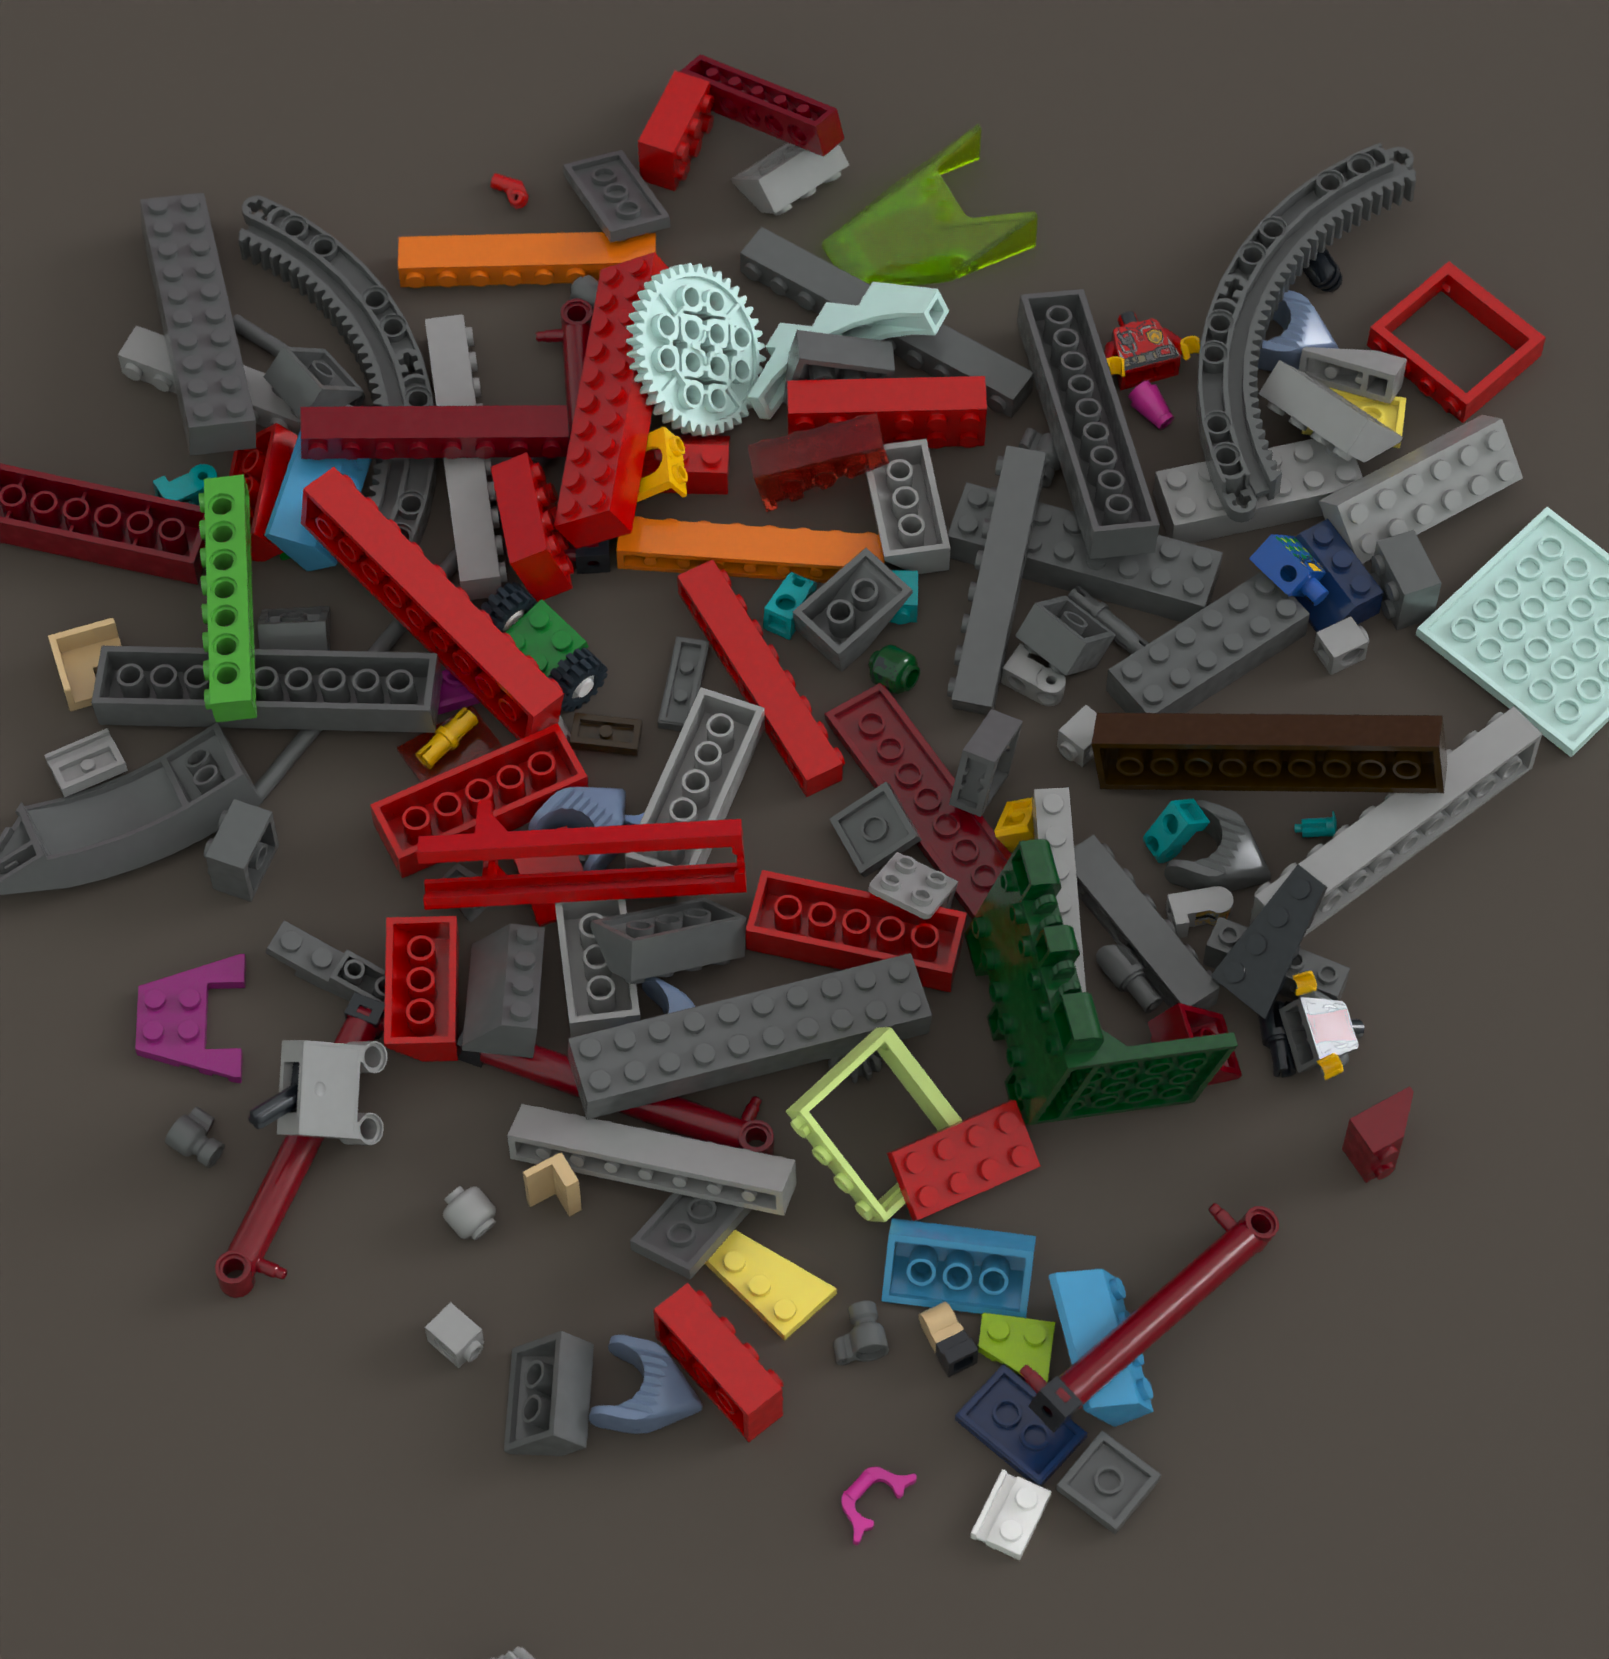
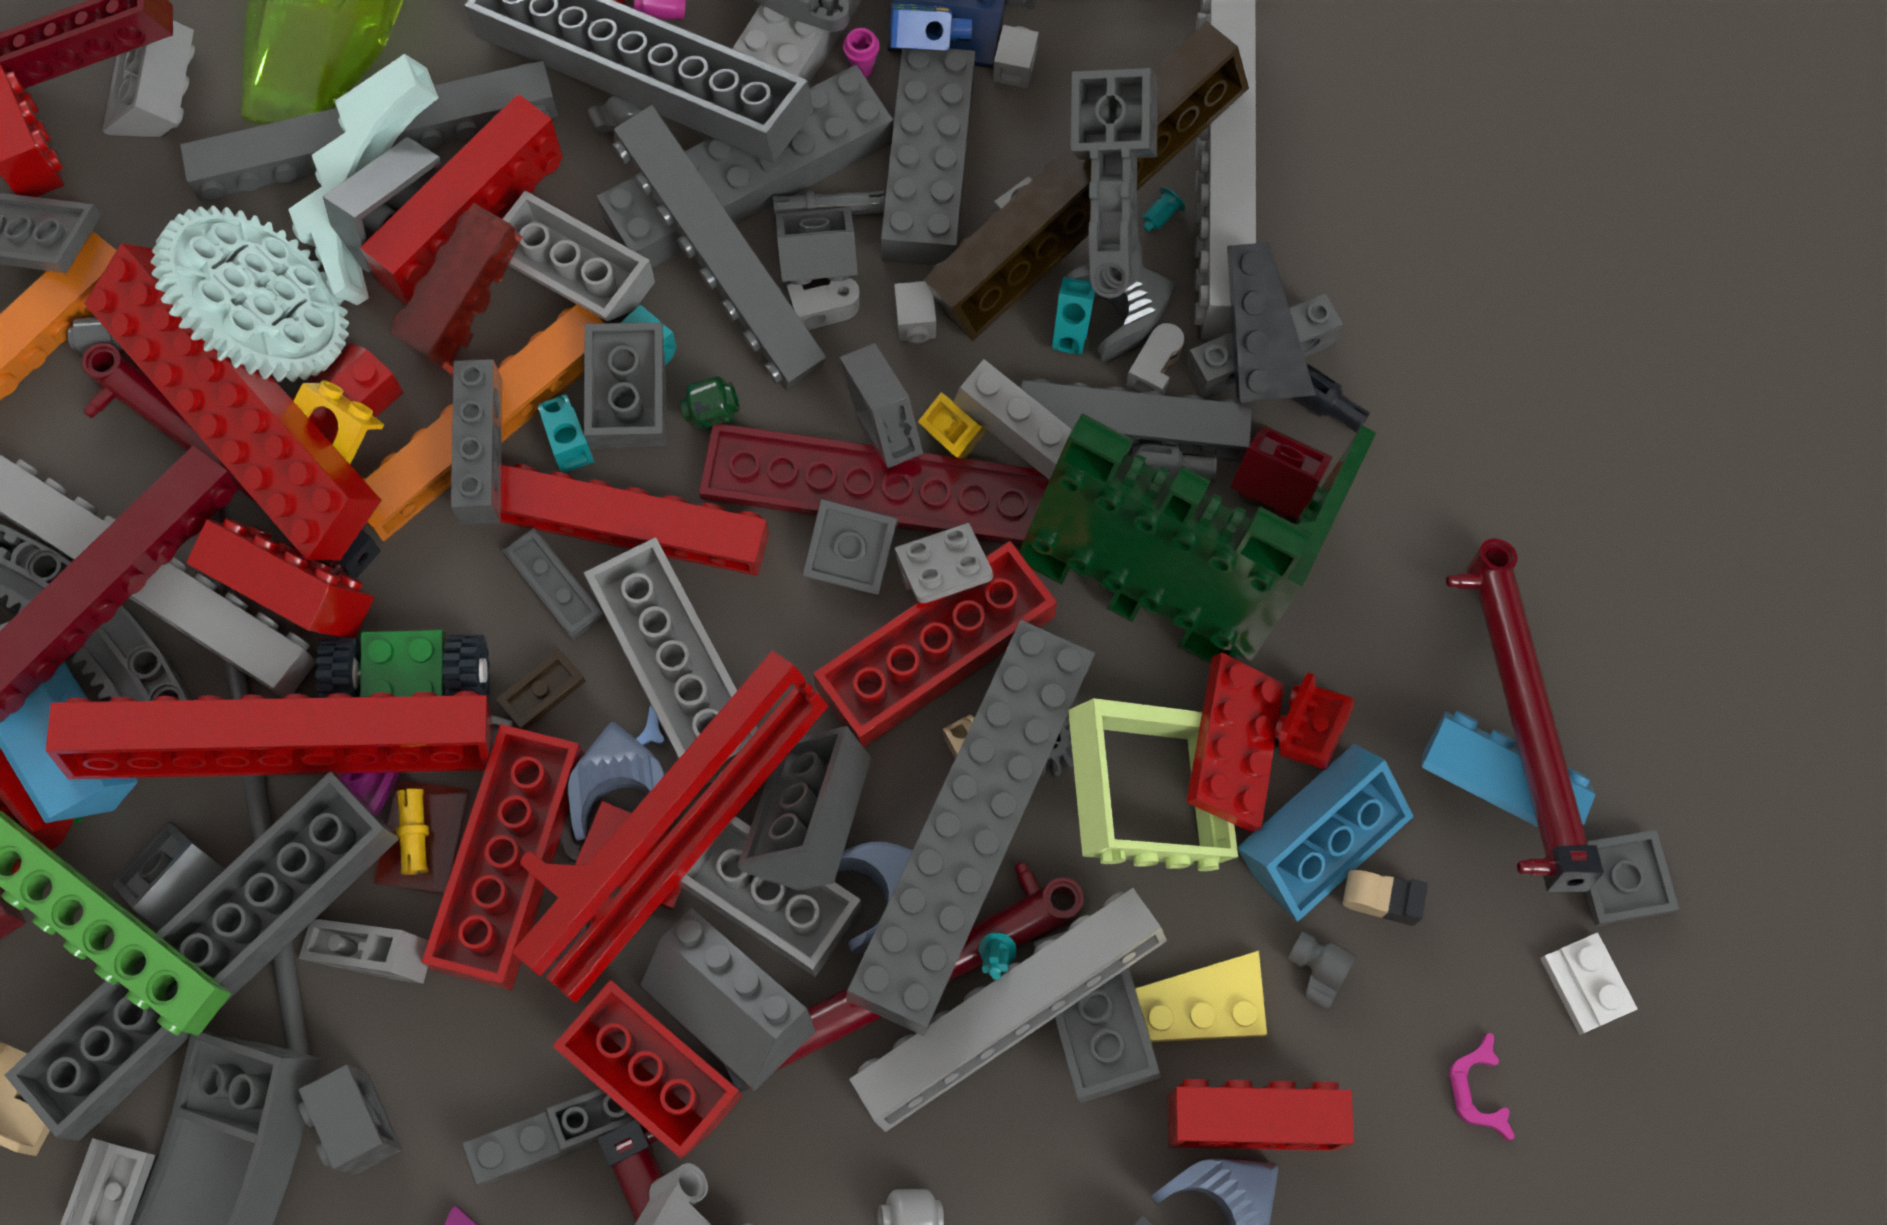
camera: 50 degrees left, 10 degrees up
(351, 775) = (366, 950): none -> light grey slope
(553, 1178) = (961, 1108): tan panel -> none
(682, 1123) = (996, 952): none -> teal piece
(725, 555) = (476, 442): none -> dark grey brick
(1008, 1427) = (1506, 909): dark blue tile -> none
(1017, 1342) = (1436, 843): lime wing -> none
(1026, 1199) = (1313, 723): none -> red bracket
(1239, 547) = (861, 49): none -> dark pink cone
(1297, 719) = (1112, 127): none -> dark grey brick
(1319, 1029) = (1363, 366): torso -> none
(1377, 1135) = (1496, 398): dark red slope -> none

